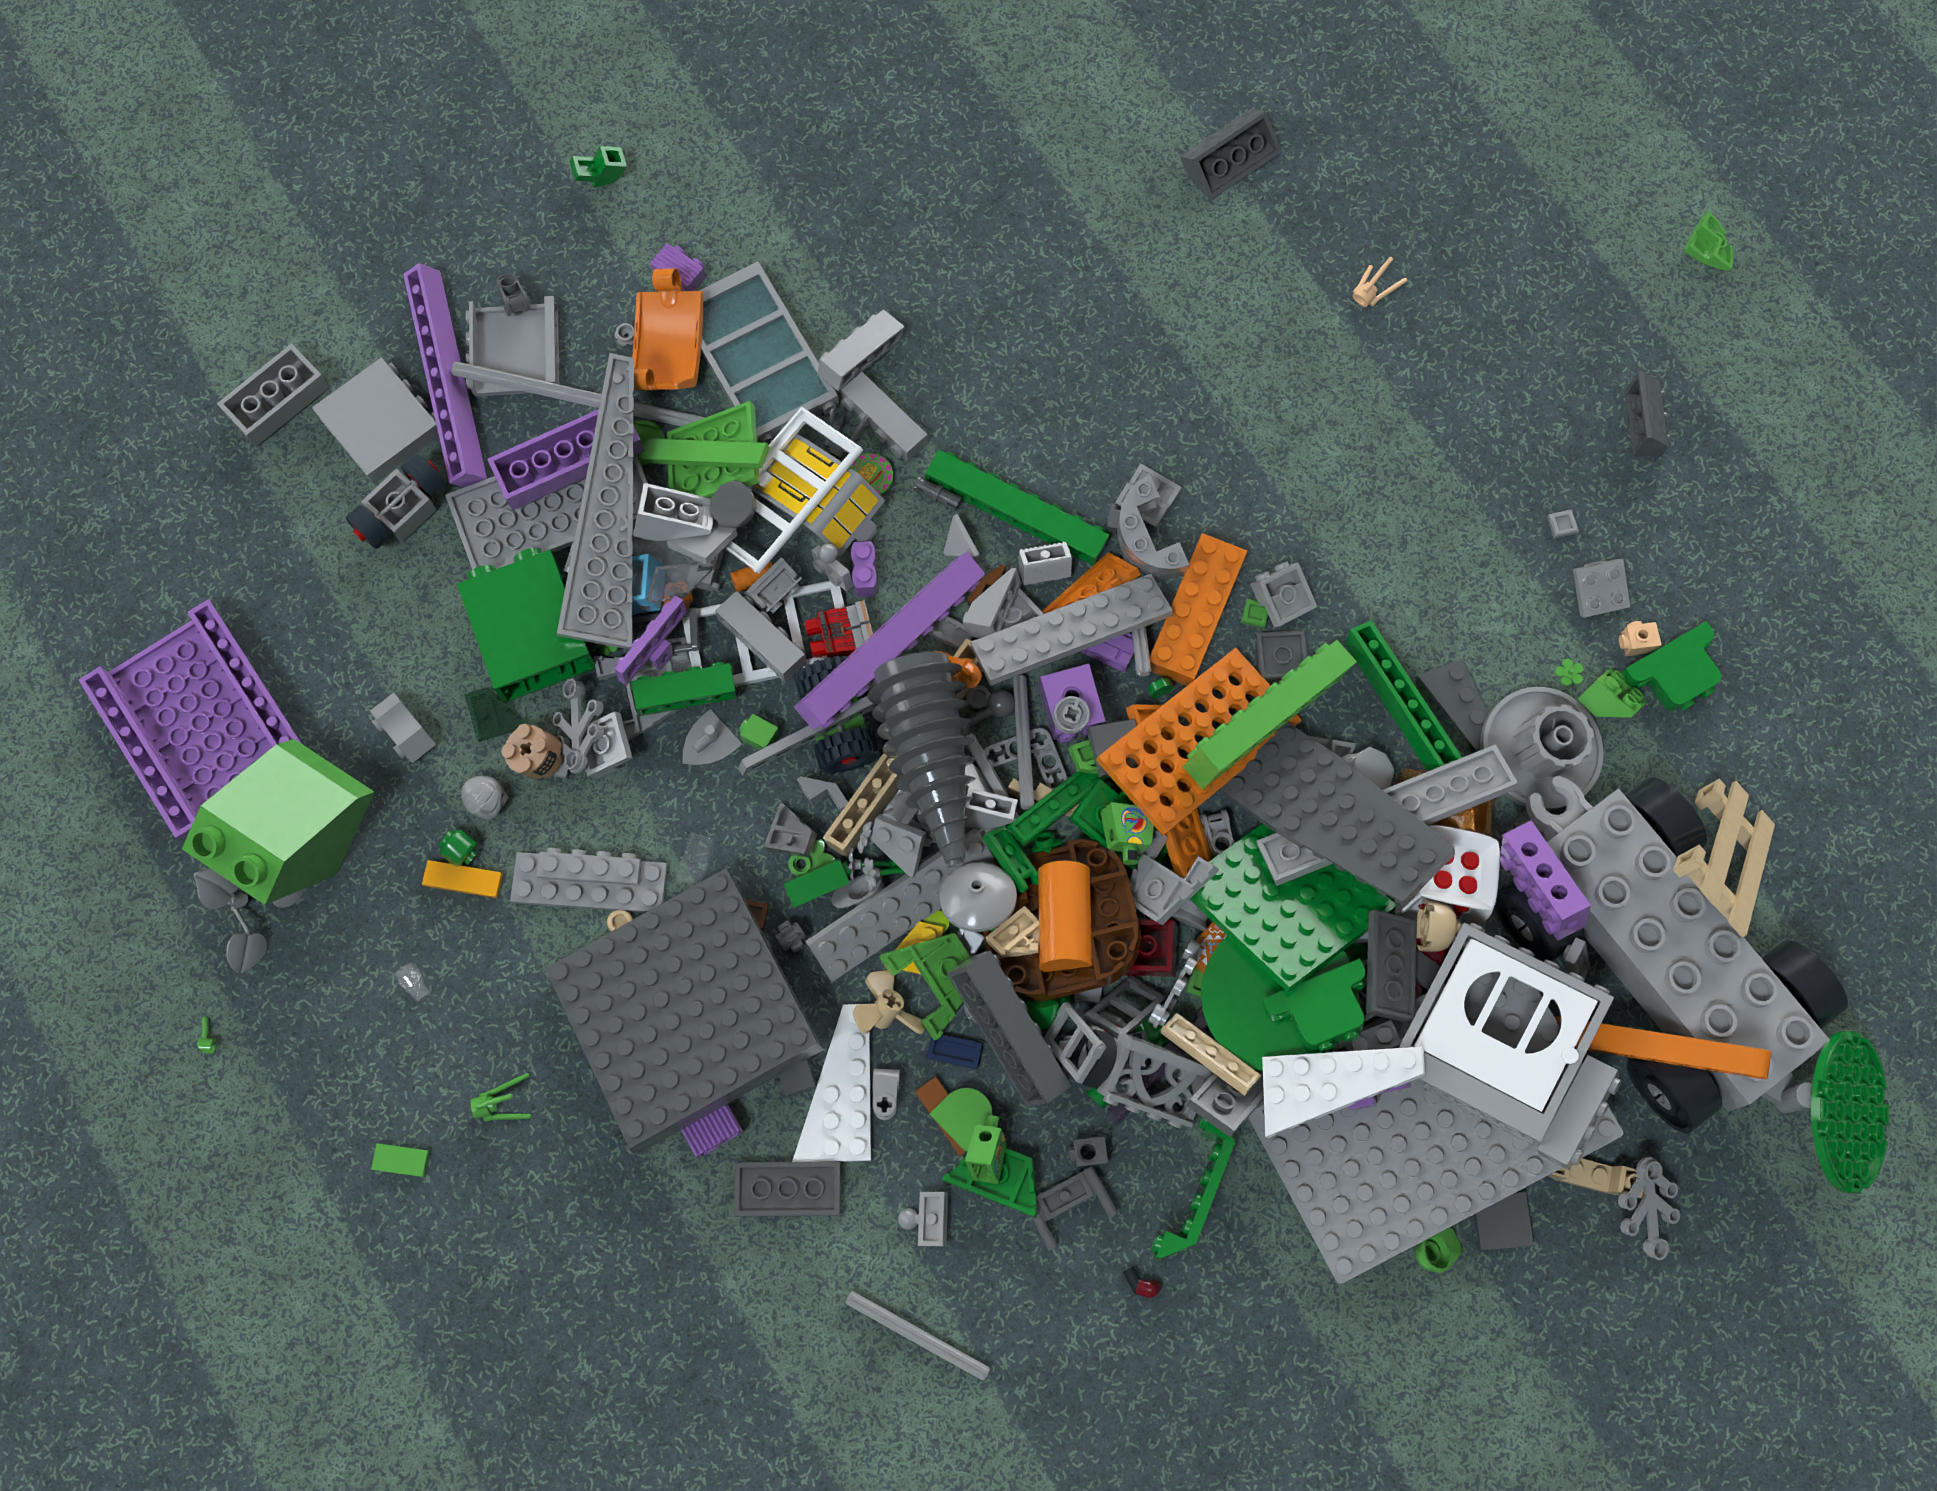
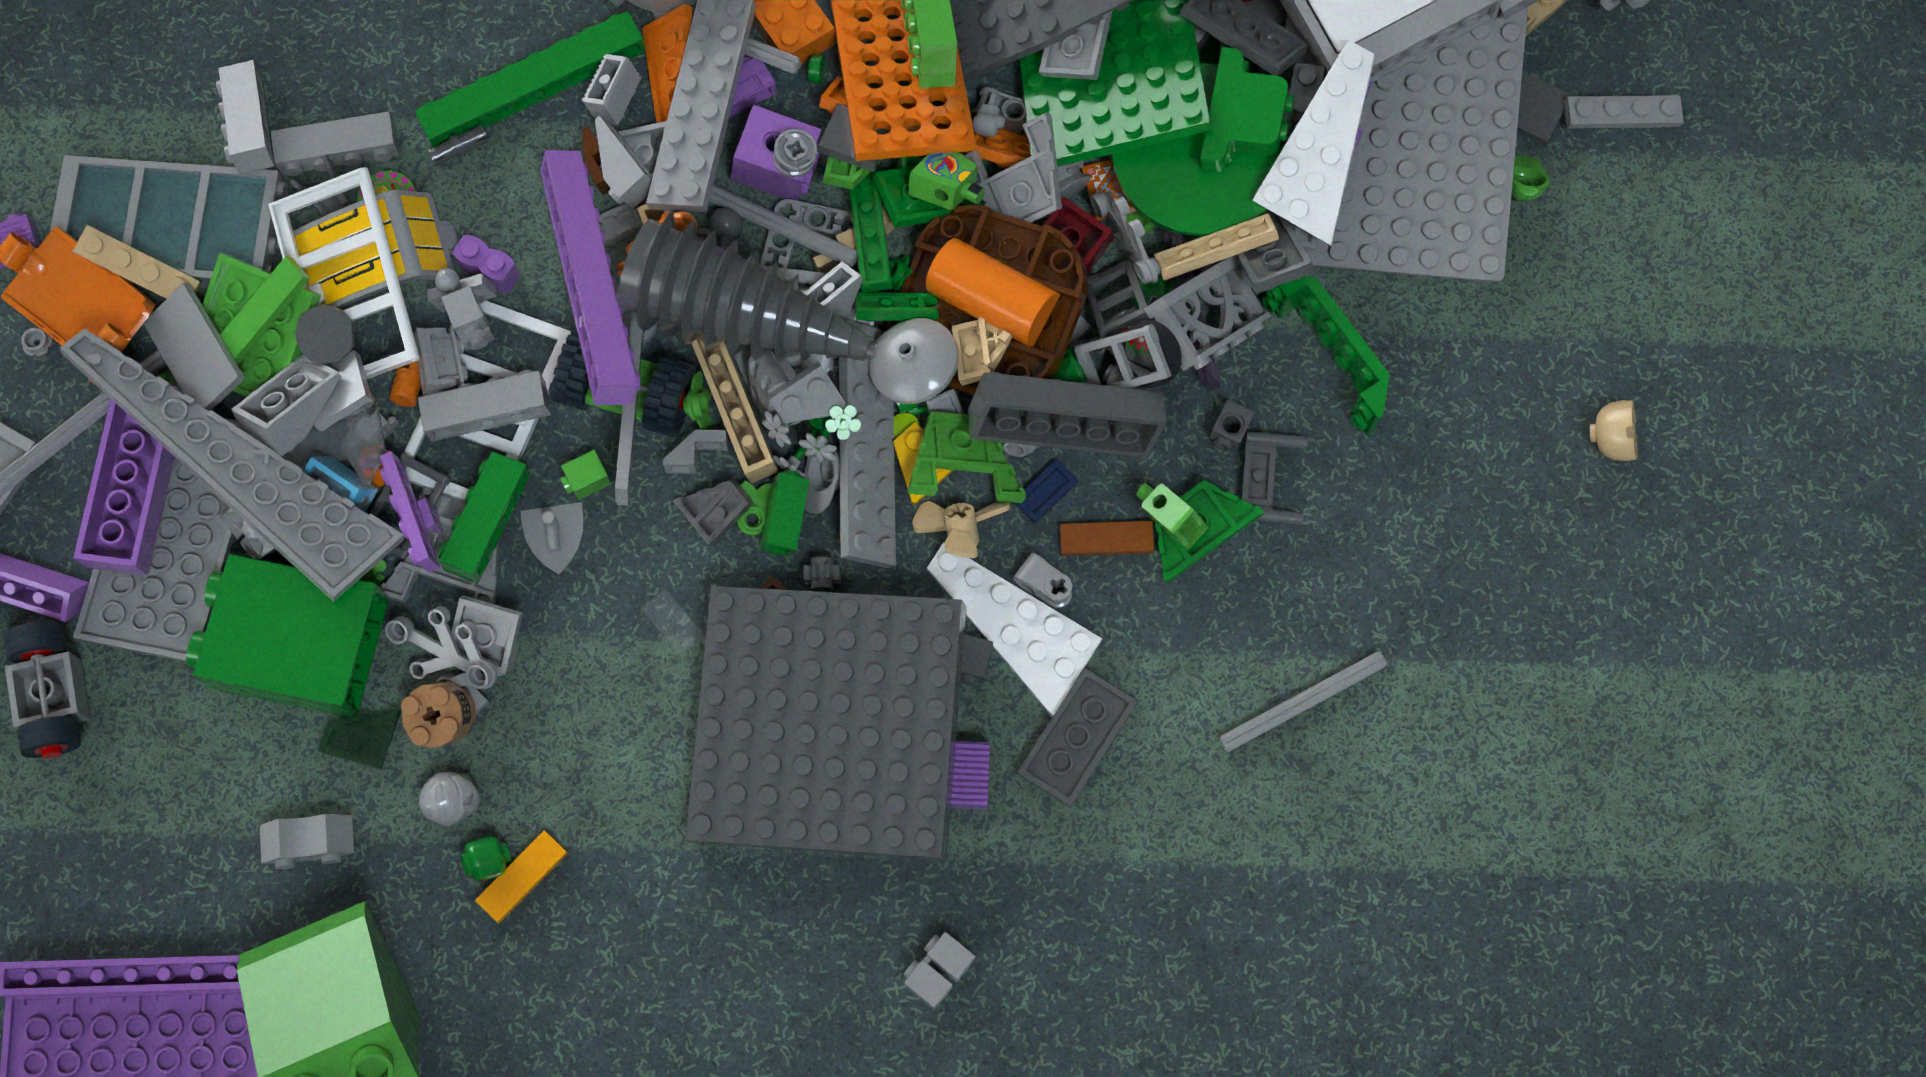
camera: 60 degrees left, 0 degrees up
(412, 981) = (598, 994): clear cone -> none
(486, 1104) = (785, 995): bright green plant -> none
(550, 1193) = (926, 981): none -> light grey piece
(588, 881) = (617, 745): light grey plate -> none
(618, 919) = (683, 739): tan tile -> none
(675, 432) = (193, 348): none -> light grey tile
(709, 358) = (131, 263): none -> tan plate
(812, 584) = (468, 318): none -> light grey piece
(840, 630) = (537, 325): hips -> none
(855, 771) = (697, 404): none -> bright green plate
(900, 878) = (842, 421): none -> plant
(931, 1219) = (1198, 616): light grey plate -> none
(959, 541) = (524, 155): light grey slope -> none
(961, 1113) = (1118, 520): bright green tile -> none
(1097, 1097) = (1183, 384): green tile -> none
(1139, 1286) = (1389, 462): arm -> none
(1197, 829) = (987, 120): none -> light grey piece
(1278, 1446) = (1616, 431): none -> tan cylinder
(1548, 1295) = (1623, 111): none -> light grey plate

